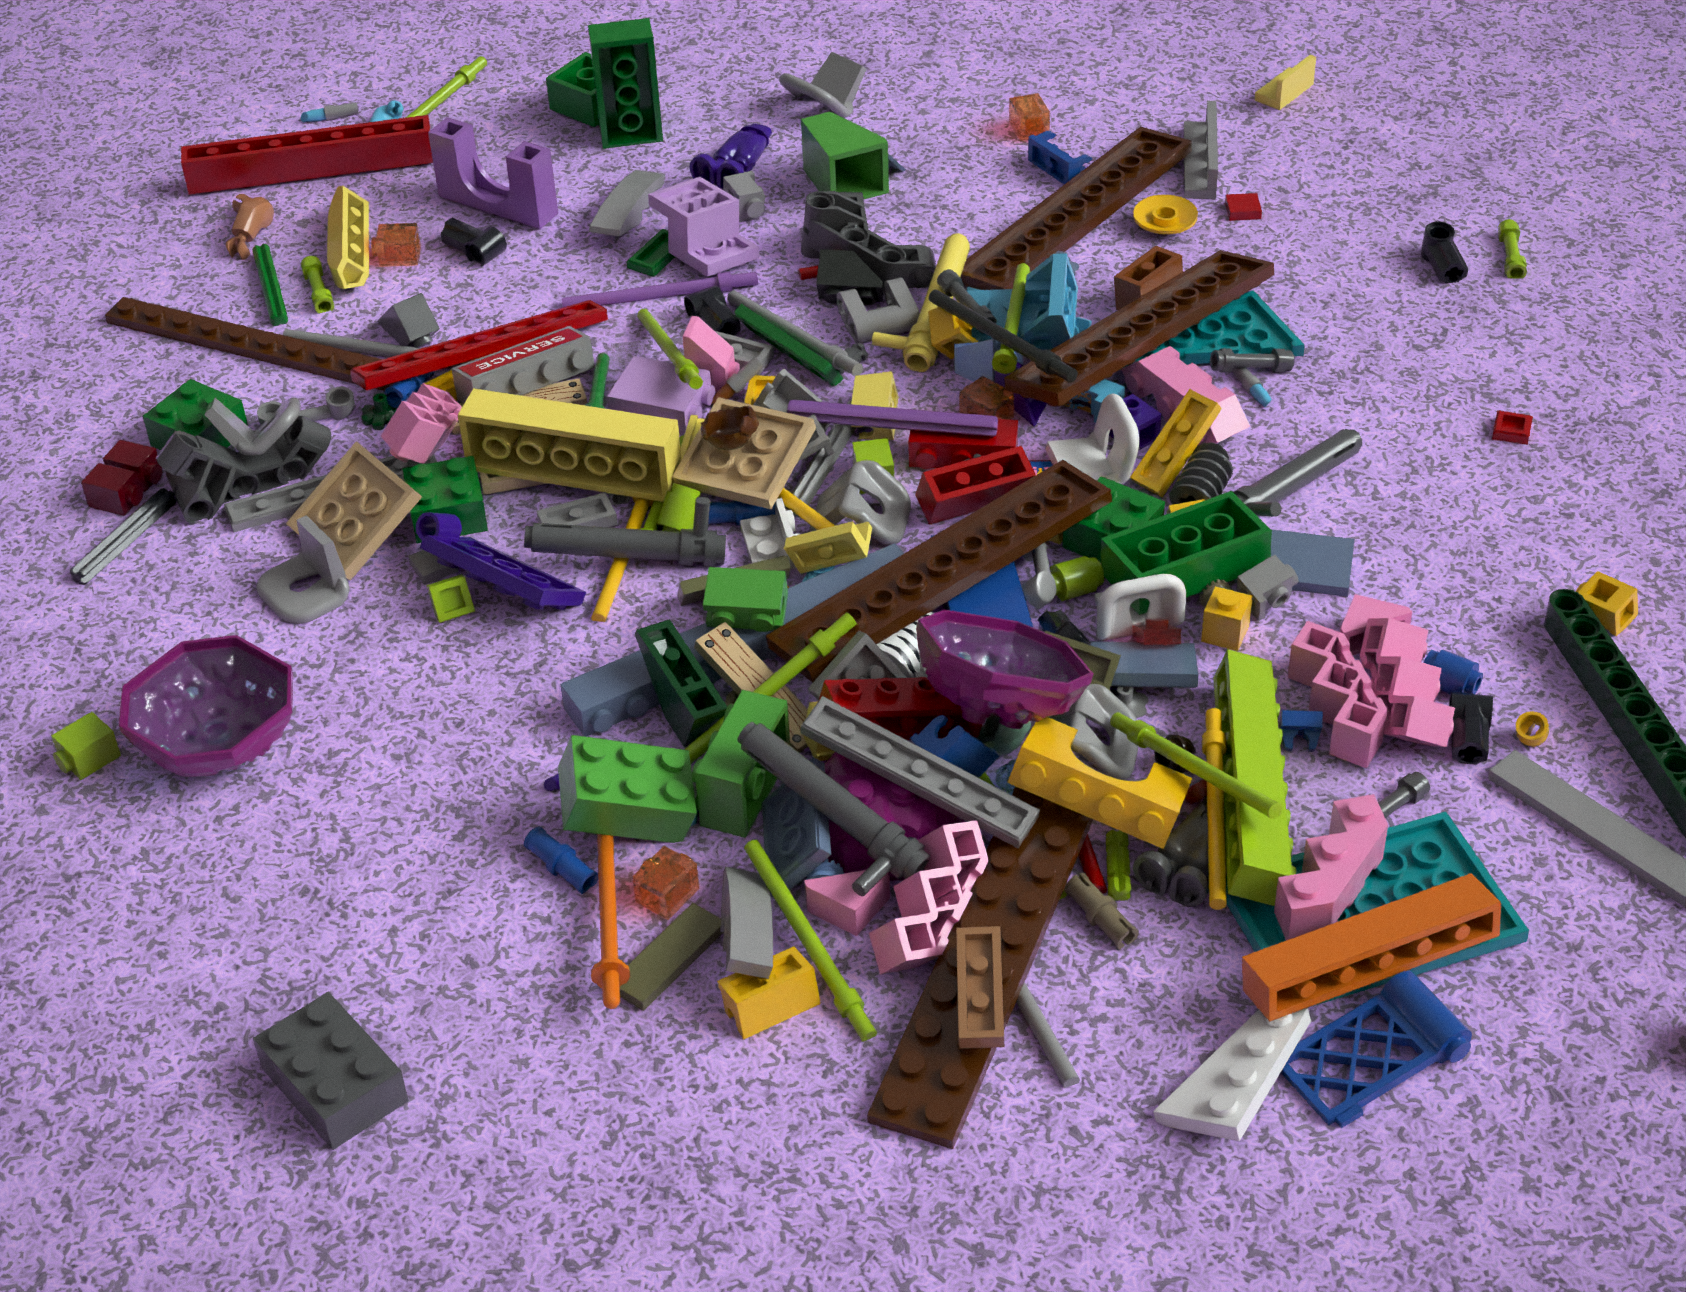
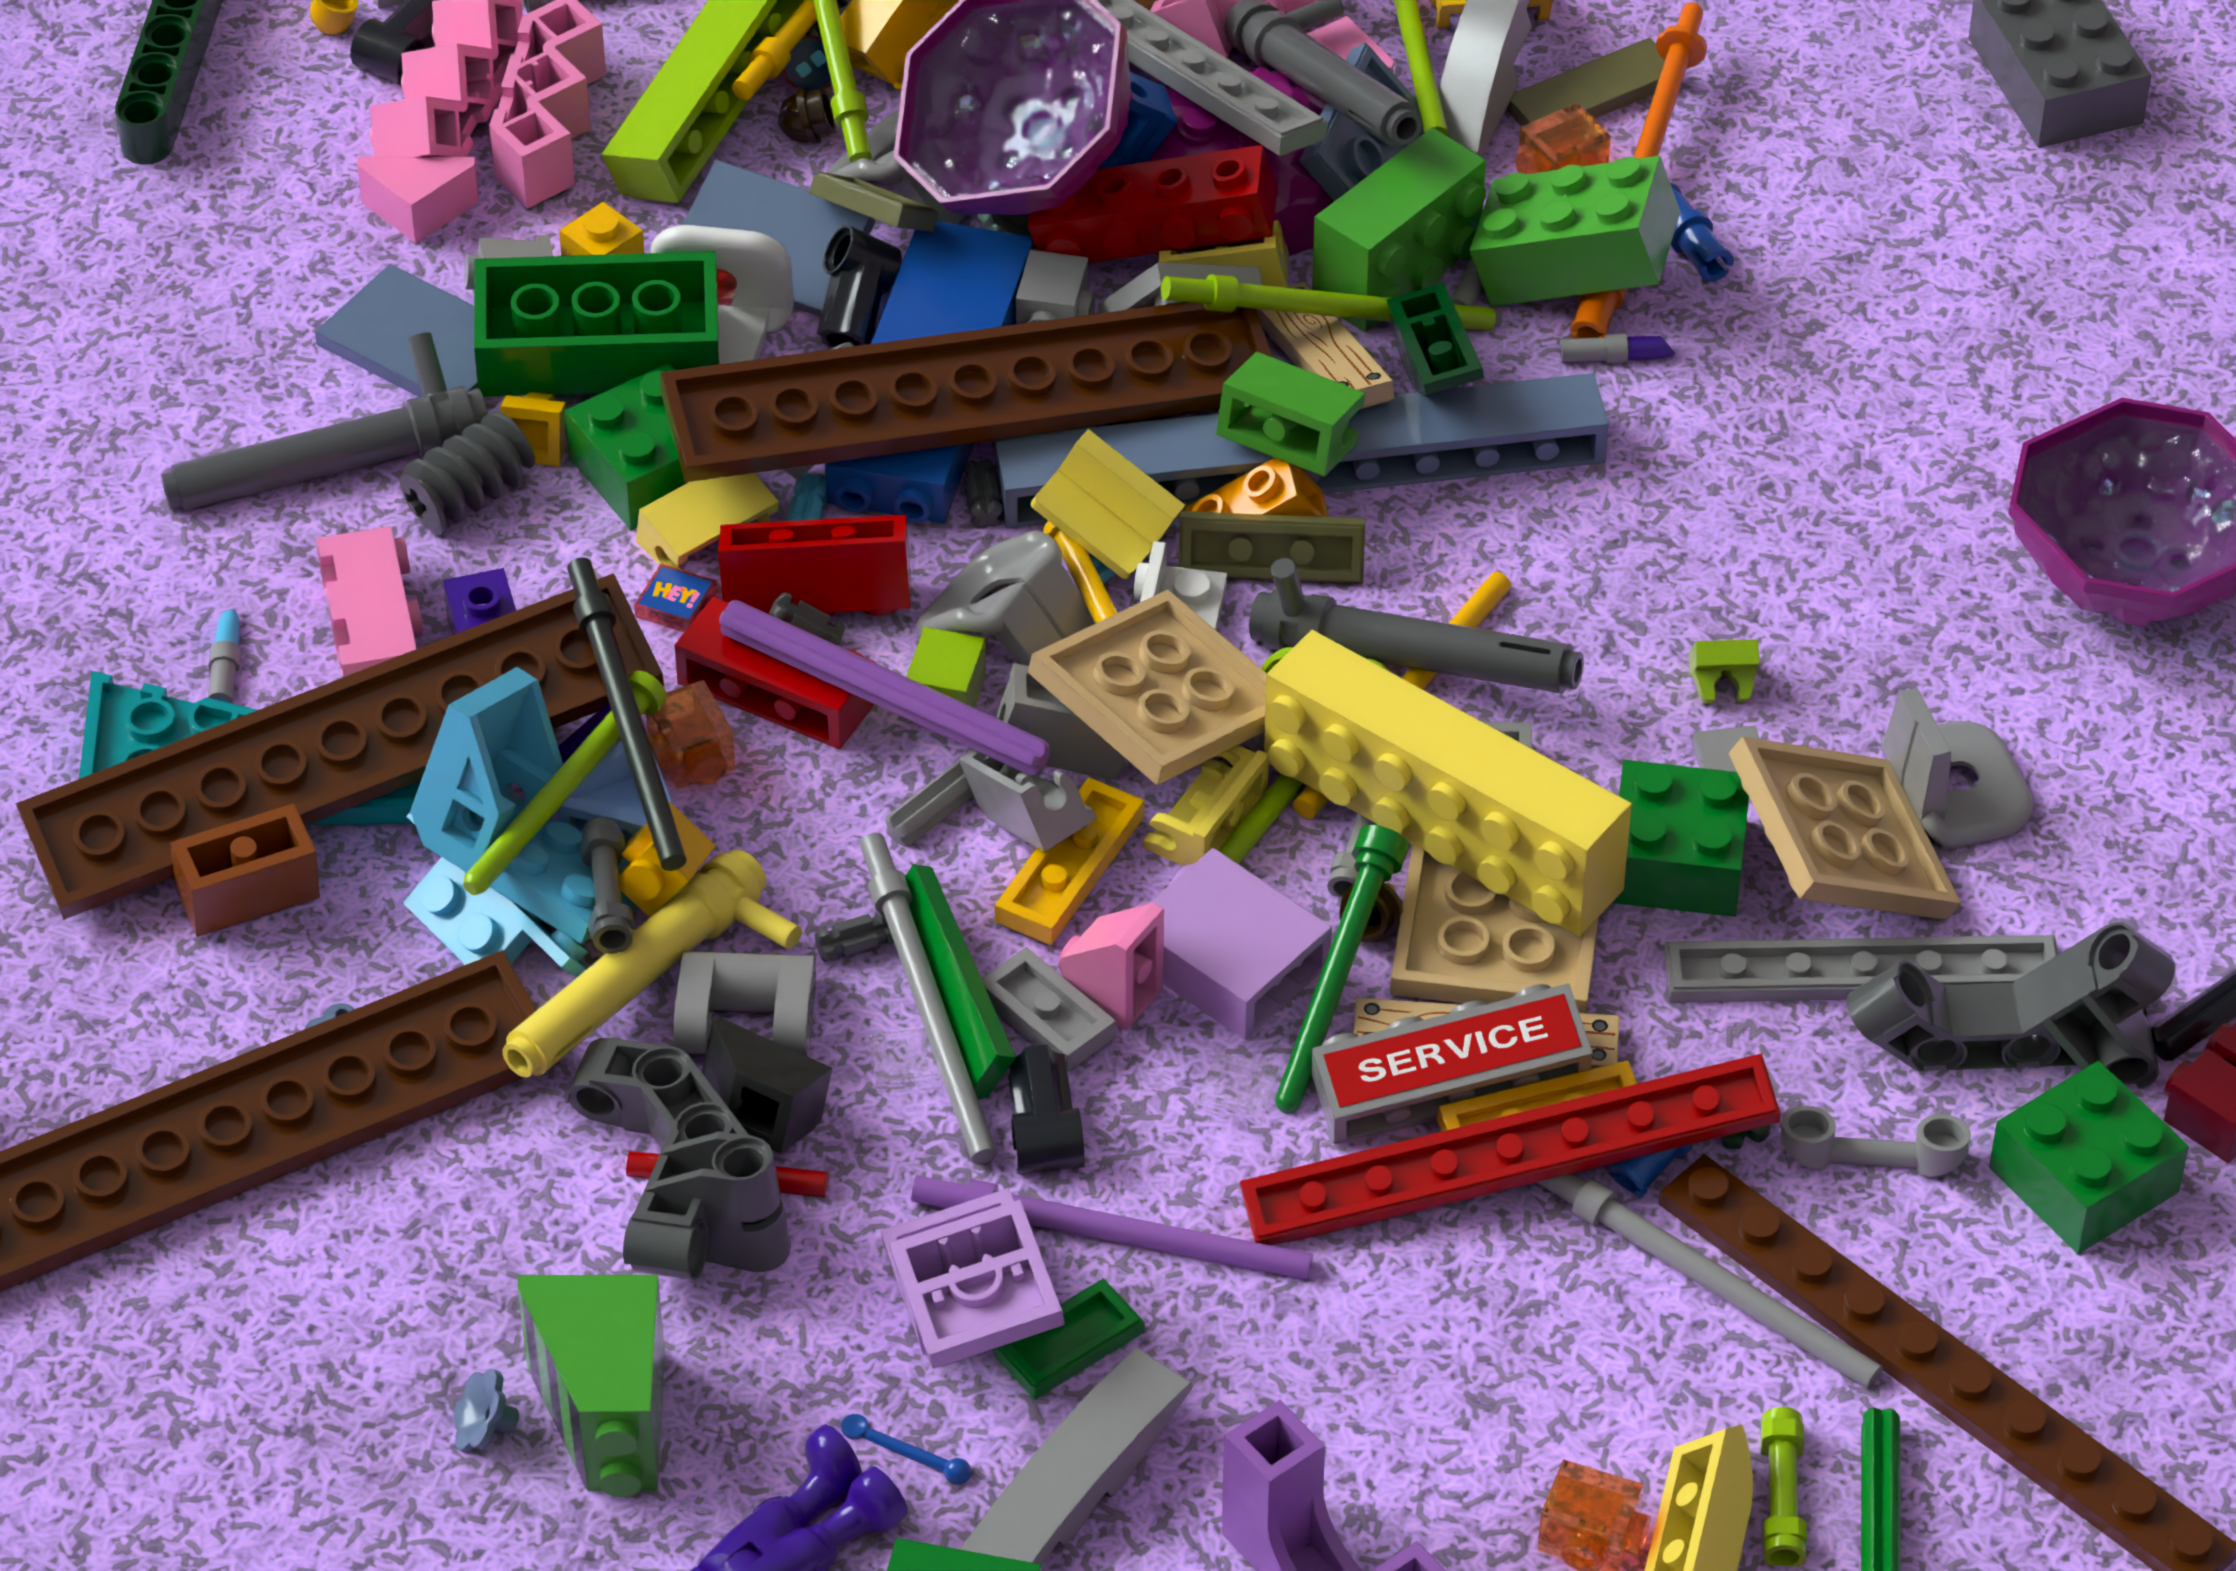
camera: 160 degrees left, 5 degrees up
(244, 438) = (2024, 1028): light grey piece -> none
(410, 322) = (1632, 1290): dark grey slope -> none
(421, 424) = (1676, 927): bright pink brick -> none
(477, 244) = (1425, 1471): black piece -> none
(482, 563) = (1630, 652): dark purple hinge -> none
(684, 368) = (1179, 887): lime bar -> none
(730, 427) = (1180, 665): reddish brown hair -> none
(739, 380) = (1060, 915): light grey piece -> none
(750, 195) = (834, 1393): light grey brick -> none
(879, 391) = (872, 794): light yellow hinge -> none
(1028, 115) = (126, 1420): clear orange brick -> none
(1052, 159) = (149, 1284): blue hinge -> none
(1090, 452) = (546, 530): white piece -> none
(1165, 214) = (69, 1032): yellow dish -> none
(1176, 443) = (463, 515): yellow plate -> none
(1225, 360) = (249, 670): dark grey bar -> none
(1301, 723) = (615, 93): blue tile -> none
(1457, 672) = (355, 90): blue brick -> none
(1611, 601) = (76, 134): yellow brick -> none

